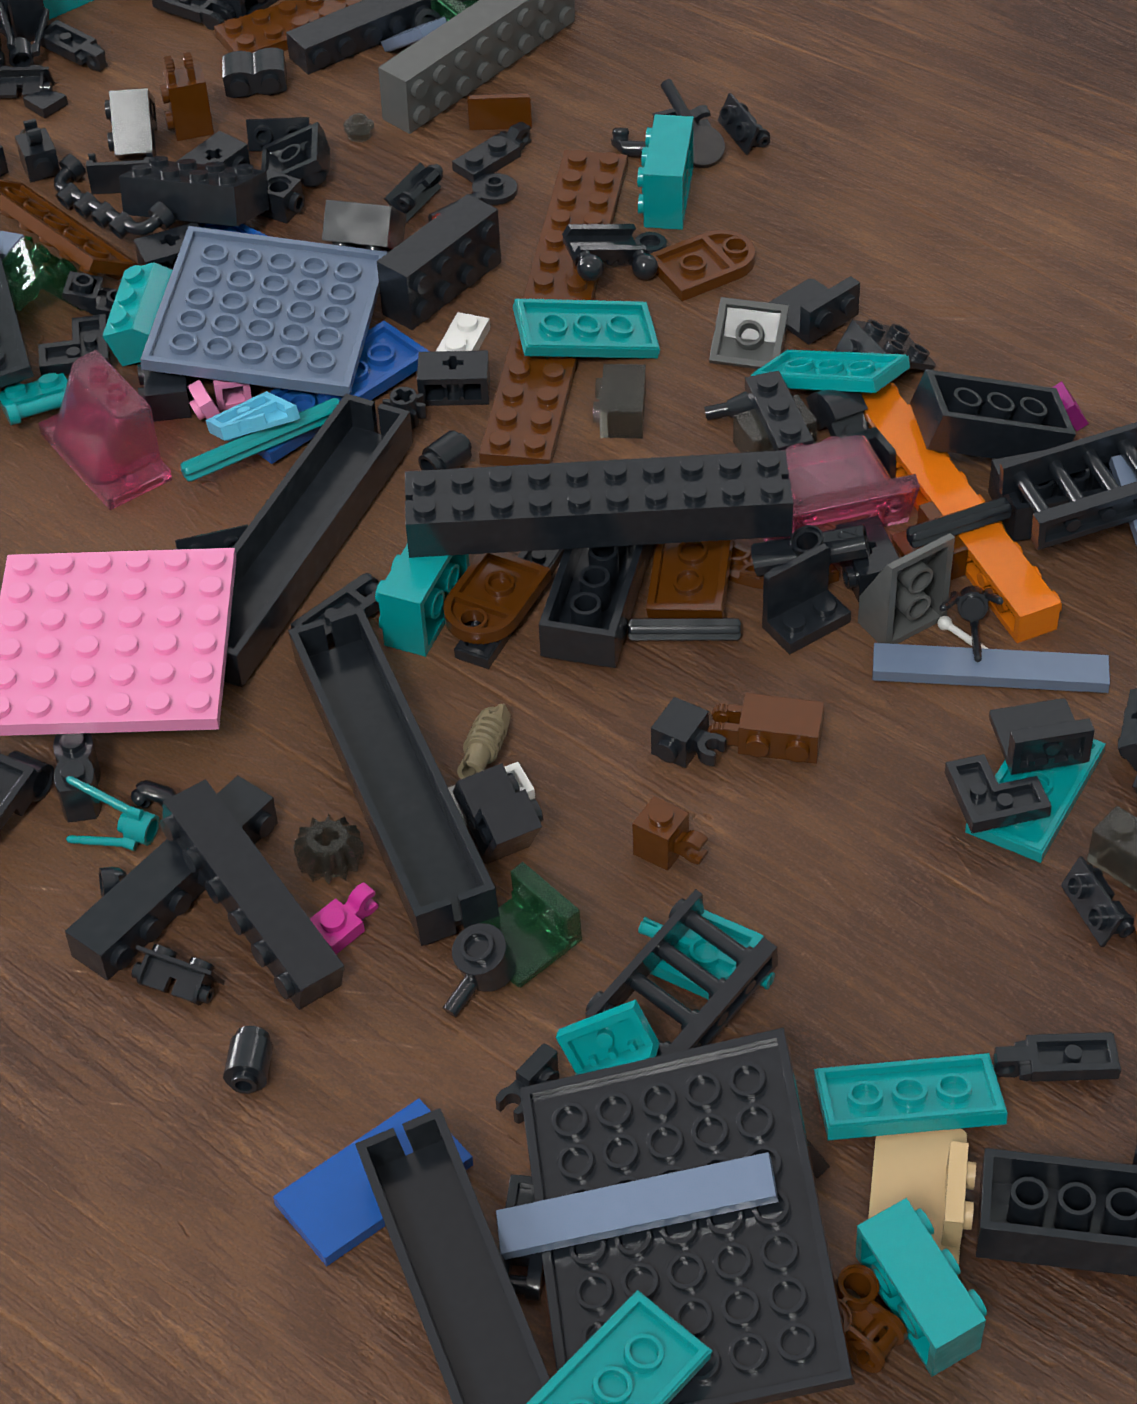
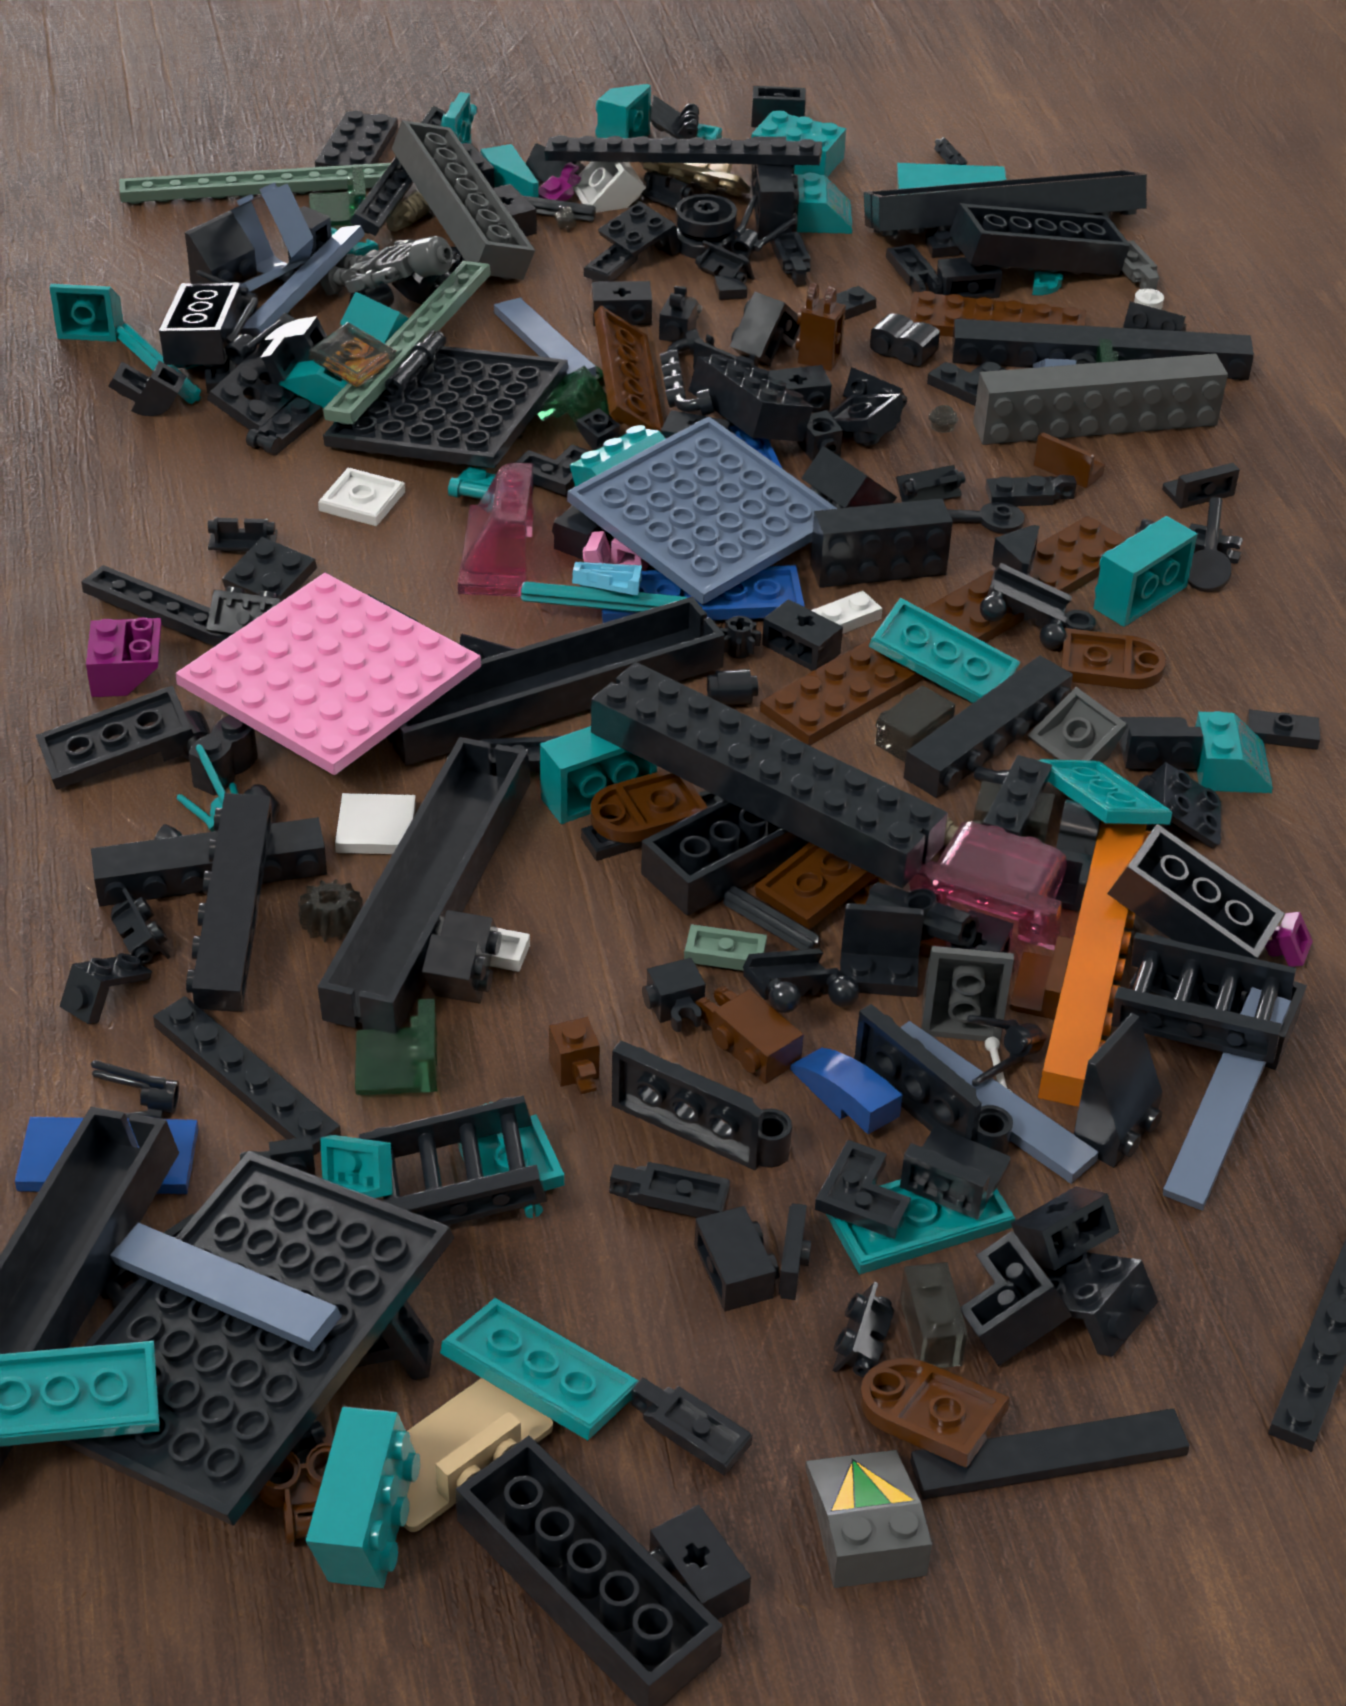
camera: 35 degrees right, 5 degrees down
(153, 73) = (856, 301): none -> black plate
(201, 1044) = (90, 982): none -> black bracket
(248, 1060) = (116, 1015): black brick -> none
(275, 752) = (373, 822): none -> white tile
(343, 923) = (285, 966): dark pink plate -> none
(348, 87) = (959, 382): none -> black plate
(359, 1101) = (156, 1092): none -> black plant
(409, 1034) = (244, 1073): none -> black plate
(484, 740) = (524, 903): dark tan hinge -> none
(484, 962) = (340, 1054): black piece -> none
(559, 209) = (1017, 549): none -> black slope
(622, 78) = (1203, 485): none -> black panel
(677, 674) = (722, 946): none -> sand green plate
(679, 370) = (986, 727): none -> black brick
(742, 125) = (1264, 571): black hinge -> none
(758, 664) = (789, 975): none -> black gear
(850, 891) = (670, 1189): none -> black hinge
(871, 809) = (748, 1138): none -> black hinge
(882, 292) = (1231, 755): none -> teal slope
(885, 246) = (1285, 728): none -> black plate
(888, 723) = (849, 1088): none -> blue slope
(954, 911) = (735, 1258): none -> black brick
(959, 522) = (1070, 965): black axle -> none
(989, 876) = (795, 1252): none -> black plate
(1011, 681) = (927, 1085): none -> black hinge
(1093, 603) = (1119, 1095): none -> black slope

